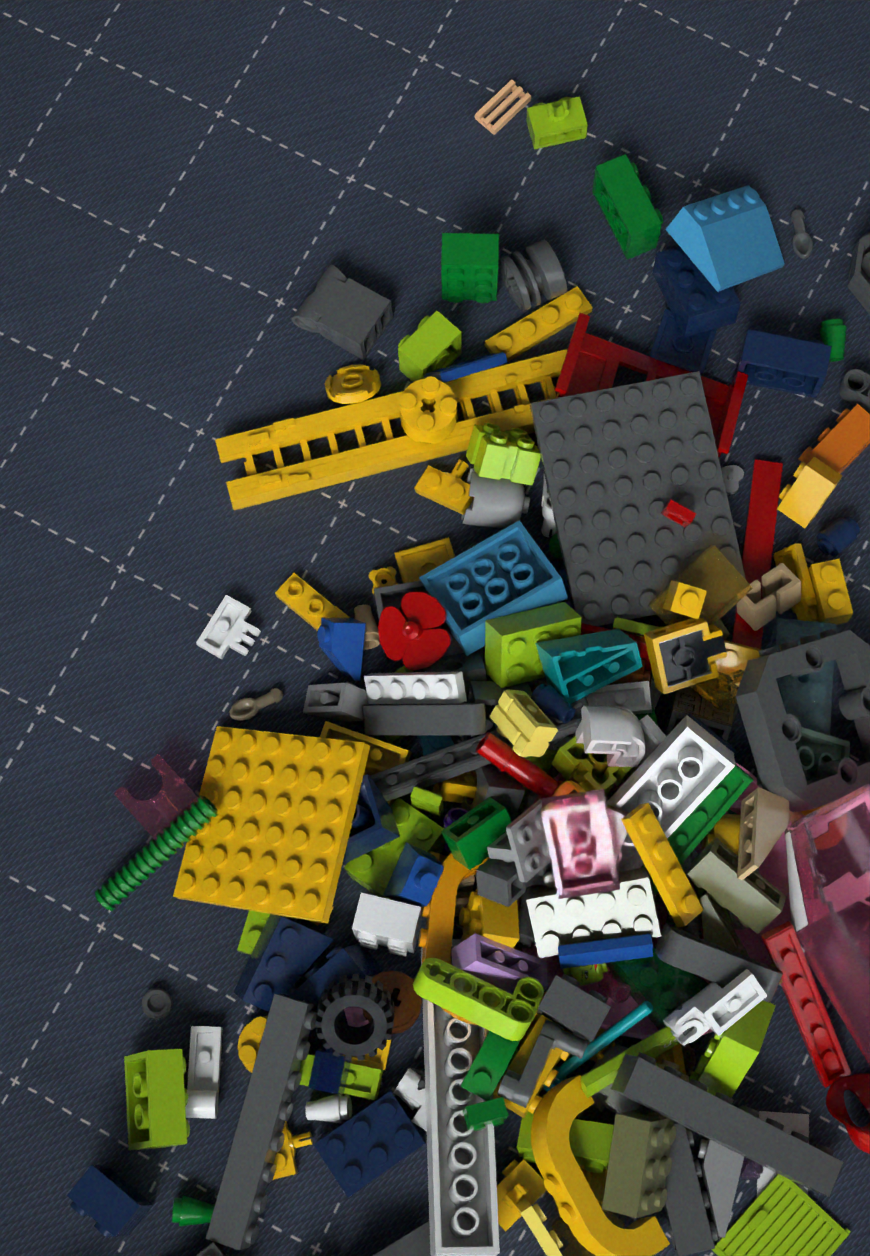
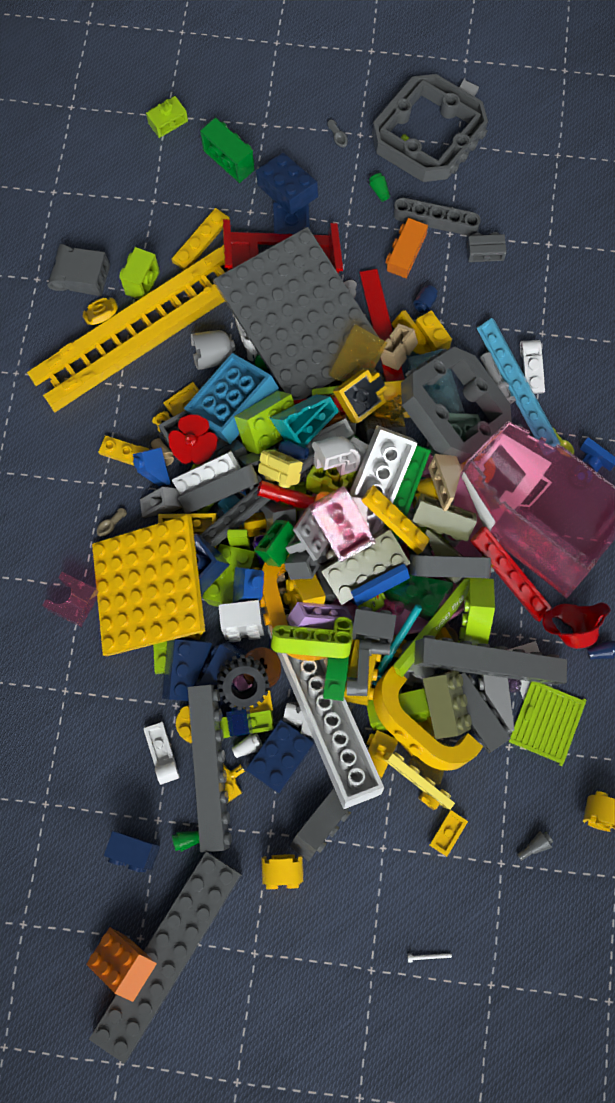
camera: 20 degrees left, 0 degrees up
(156, 853) = (82, 633): green piece -> none
(156, 1099) = (138, 779): lime brick -> none
(157, 1003) = (117, 723): dark grey tile -> none
(228, 629) = (77, 483): white hinge -> none
(428, 395) = (152, 308): yellow brick -> none
(446, 487) = (180, 353): yellow plate -> none
(468, 367) = (166, 276): blue tile -> none
(469, 267) = (146, 215): green brick -> none
(485, 1113) = (344, 708): green piece -> none
(495, 100) = (122, 122): light nougat tile -> none
(503, 454) = (207, 318): lime brick -> none
(537, 273) = (186, 209): dark grey wheel -> none
(678, 513) = (326, 313): red tile -> none
(684, 599) = (349, 361): yellow brick -> none
(715, 1008) = (459, 592): white plate -> none
(728, 237) = (295, 146): dark azure slope -> none
(784, 362) = (356, 208): dark blue brick -> none
(809, 492) = (399, 278): yellow brick -> none

